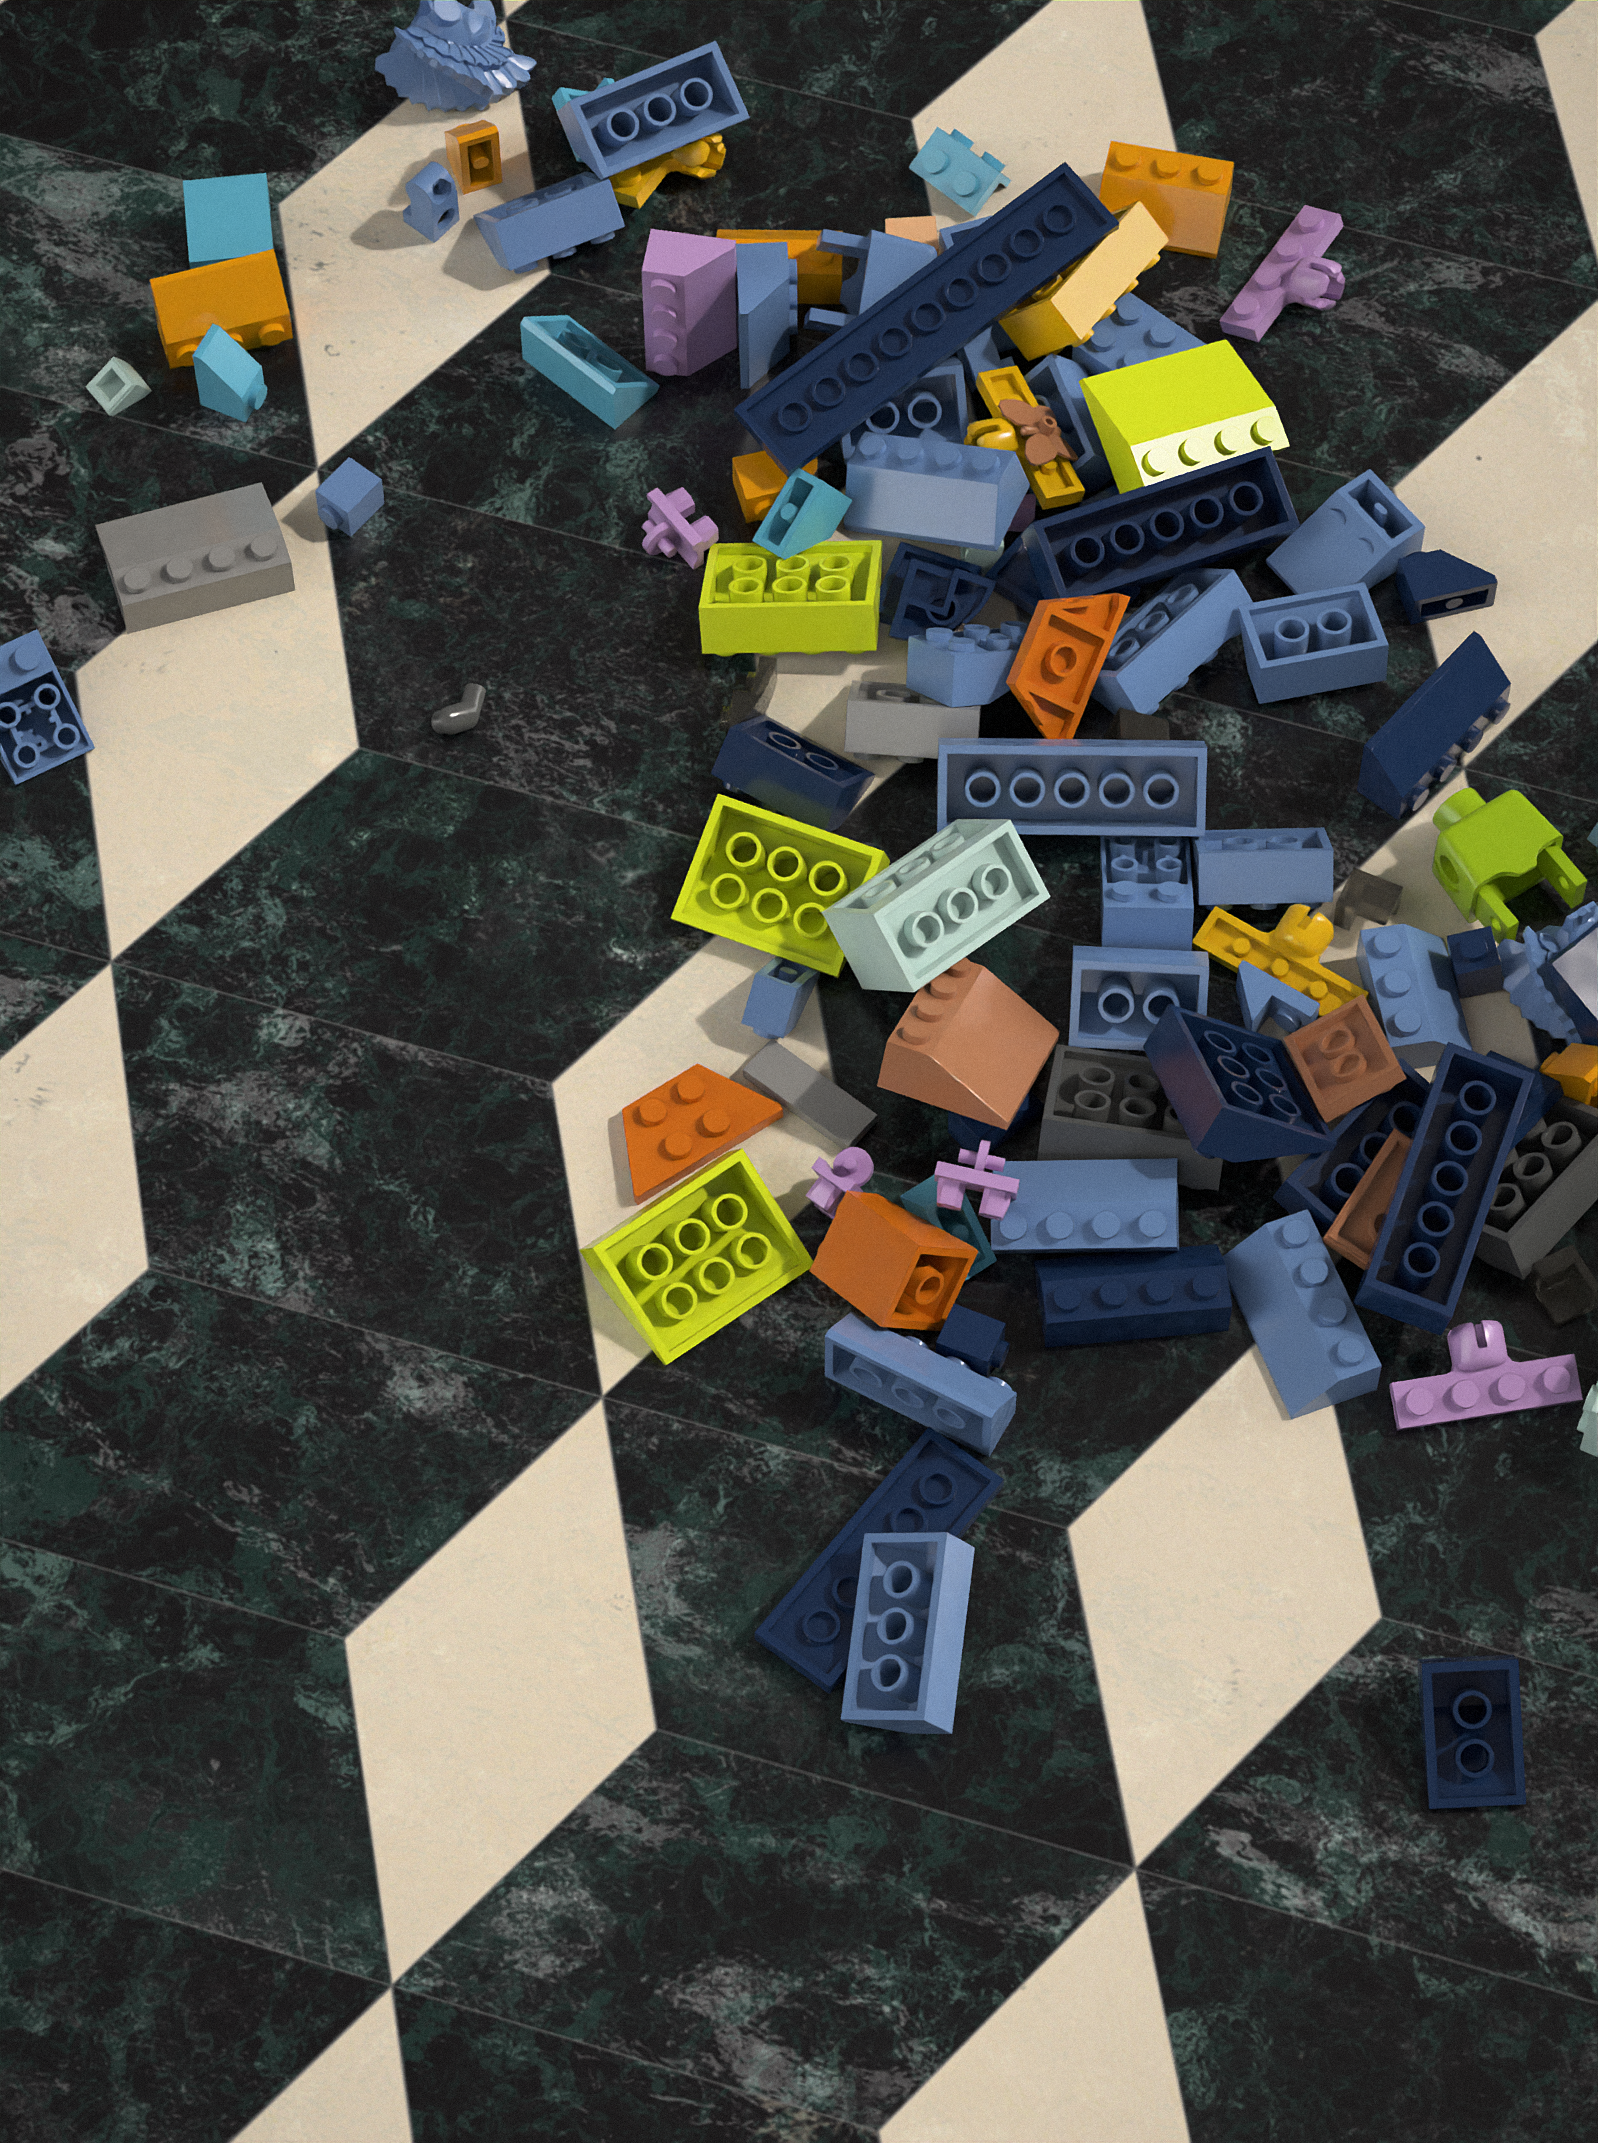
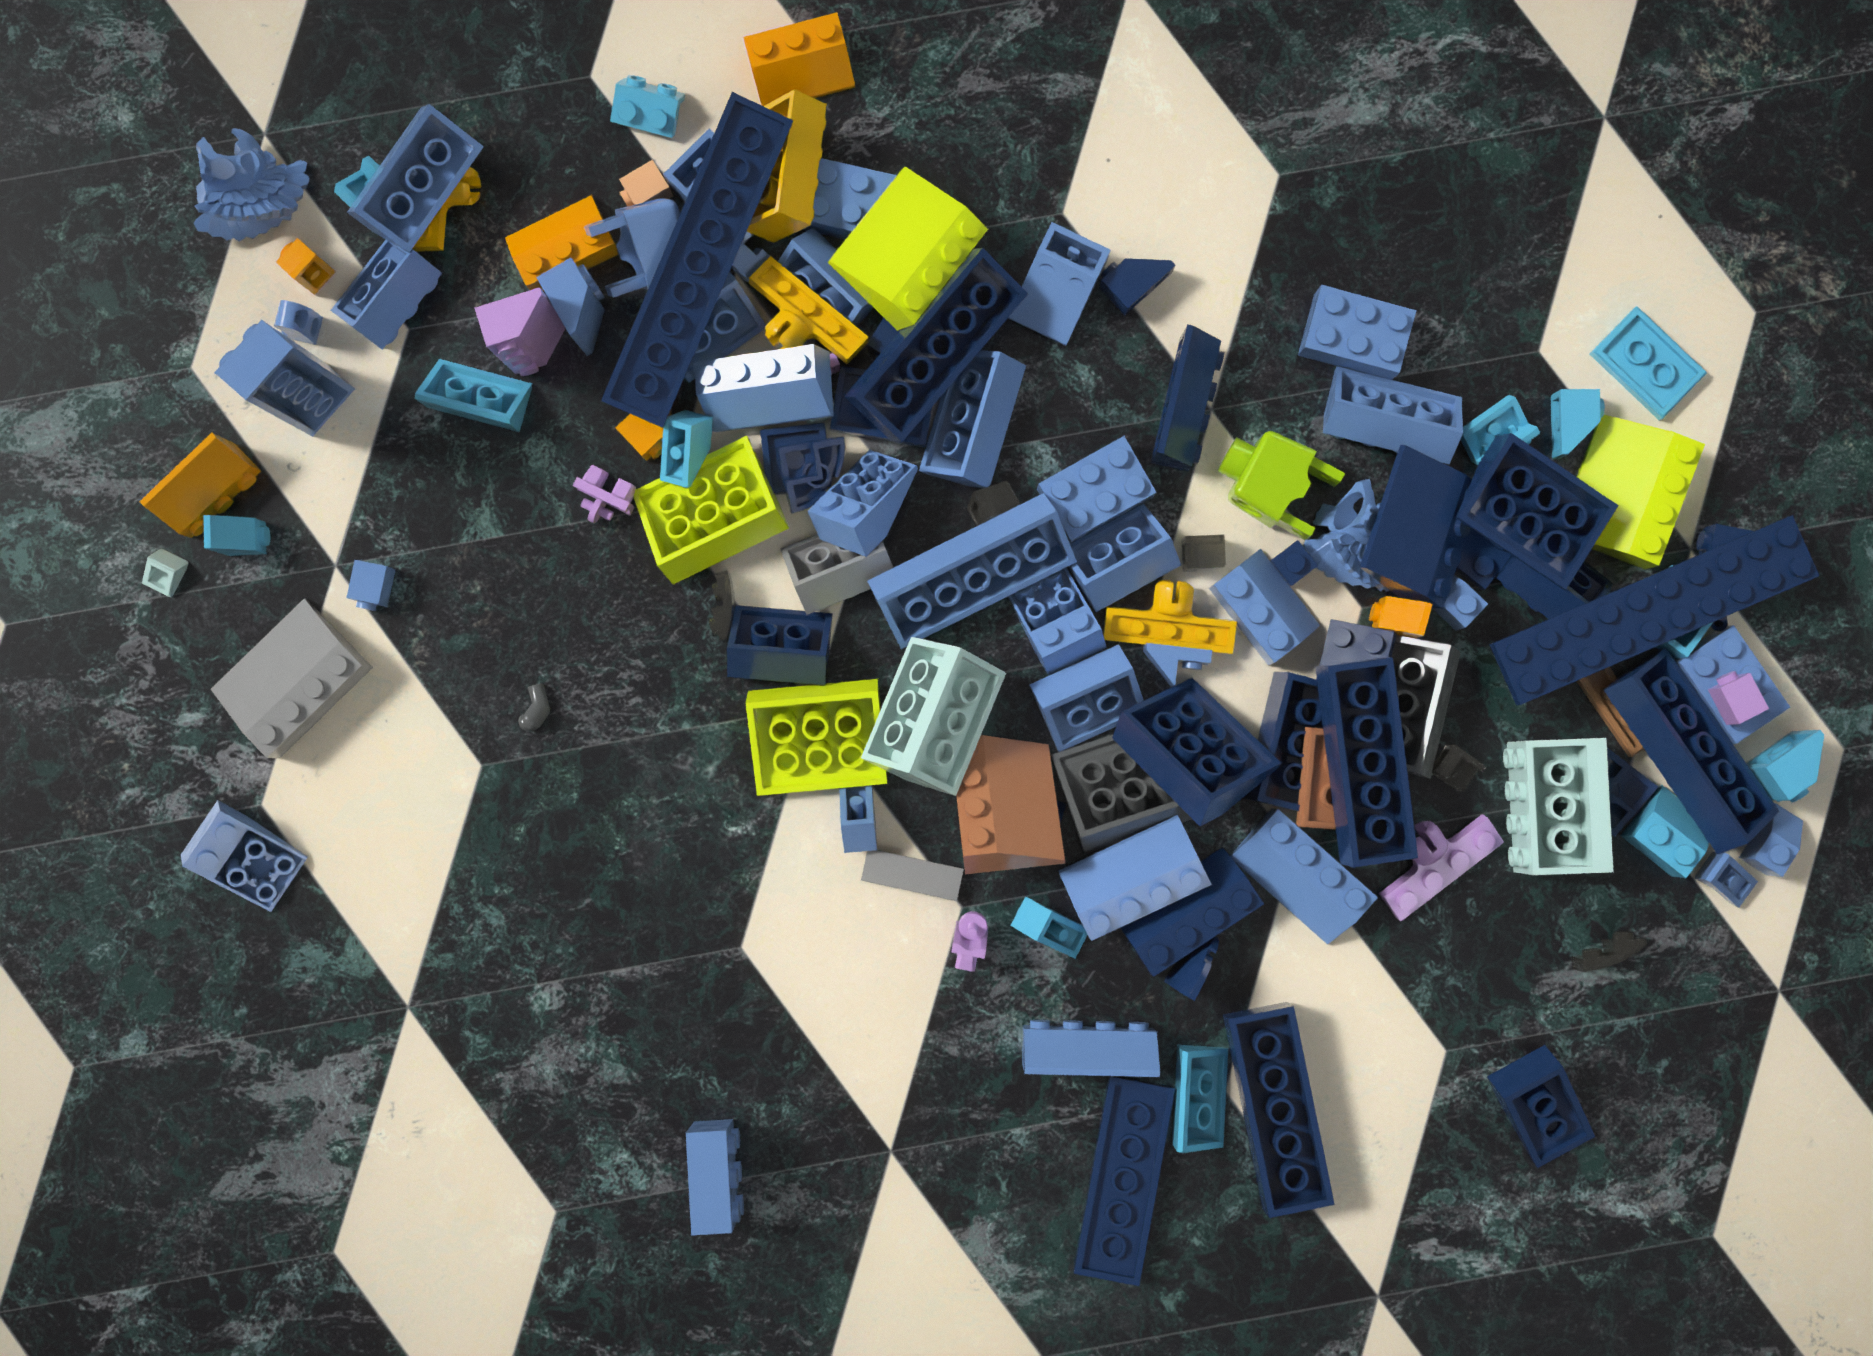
camera: 25 degrees left, 25 degrees up
(227, 218) = (168, 412): medium azure panel -> none
(371, 1295) = (714, 1177): none -> medium blue brick
(395, 220) = (283, 378): none -> medium blue brick
(688, 1126) = (845, 937): orange wing -> none
(698, 1256) = (901, 1030): neon yellow slope -> none
(892, 1263) = (1032, 984): orange slope -> none
(908, 1632) = (1172, 1231): medium blue slope -> none
(974, 1340) = (1107, 1002): dark blue brick -> none
(996, 1189) = (1066, 909): lavender hips -> none
(1030, 1506) = (1199, 1098): none -> medium azure slope
(1042, 427) = (813, 301): nougat piece -> none
(1063, 659) = (921, 478): orange wing -> none
(1117, 1344) = (1192, 970): none -> dark blue brick
(1123, 1559) = (1278, 1109): none -> dark blue brick
(1273, 778) = (1097, 489): none -> medium blue brick
(1289, 275) = (914, 79): lavender plate -> none
(1313, 642) = (1074, 372): medium blue slope -> none
(1344, 1058) = (1251, 689): nougat plate -> none

